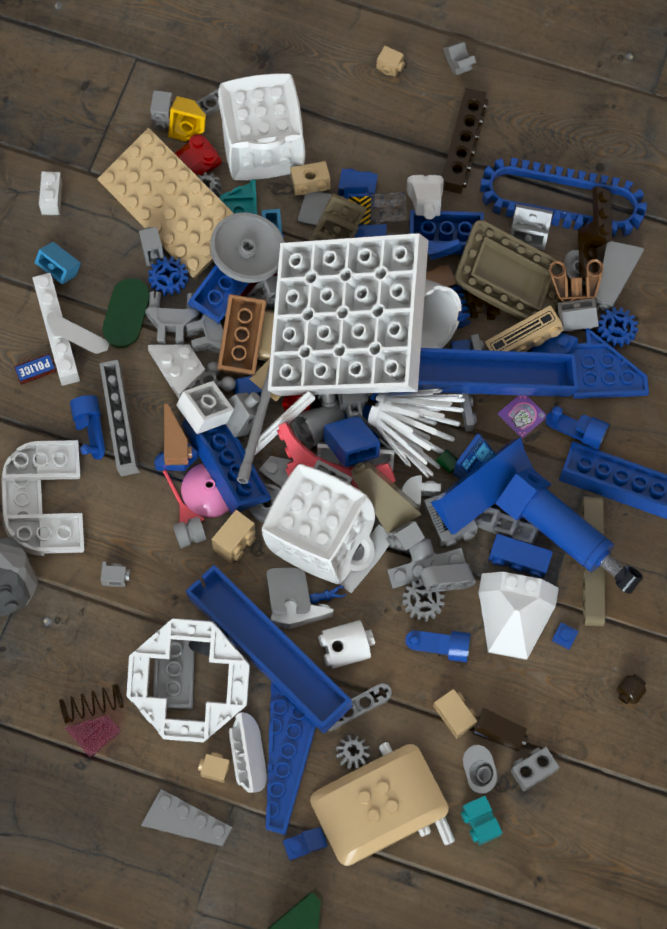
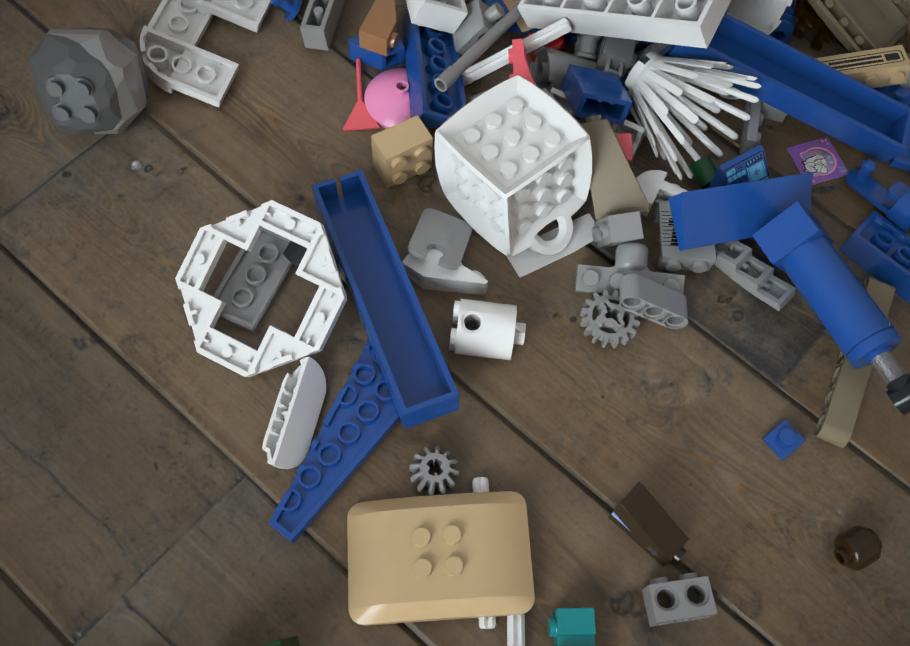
camera: 20 degrees right, 5 degrees down
(65, 714) = (164, 275): dark brown piece -> none
(93, 734) = (114, 311): clear pink wing -> none
(114, 575) = (239, 142): light grey brick -> none
(180, 818) = (168, 463): light grey wing -> none
(189, 532) = (352, 129): light grey wheel -> none
(214, 767) = (243, 414): tan brick -> none
(305, 843) = (314, 567): blue slope -> none
(326, 595) = (488, 266): blue piece -> none
(359, 710) = (466, 421): light grey beam -> none
(454, 645) = (629, 389): blue piece -> none
(455, 713) = (595, 478): tan brick -> none
(480, 769) = (601, 567): light grey piece -> none
(514, 611) = (727, 381): white wedge -> none
(520, 556) = (759, 316): blue brick -> none

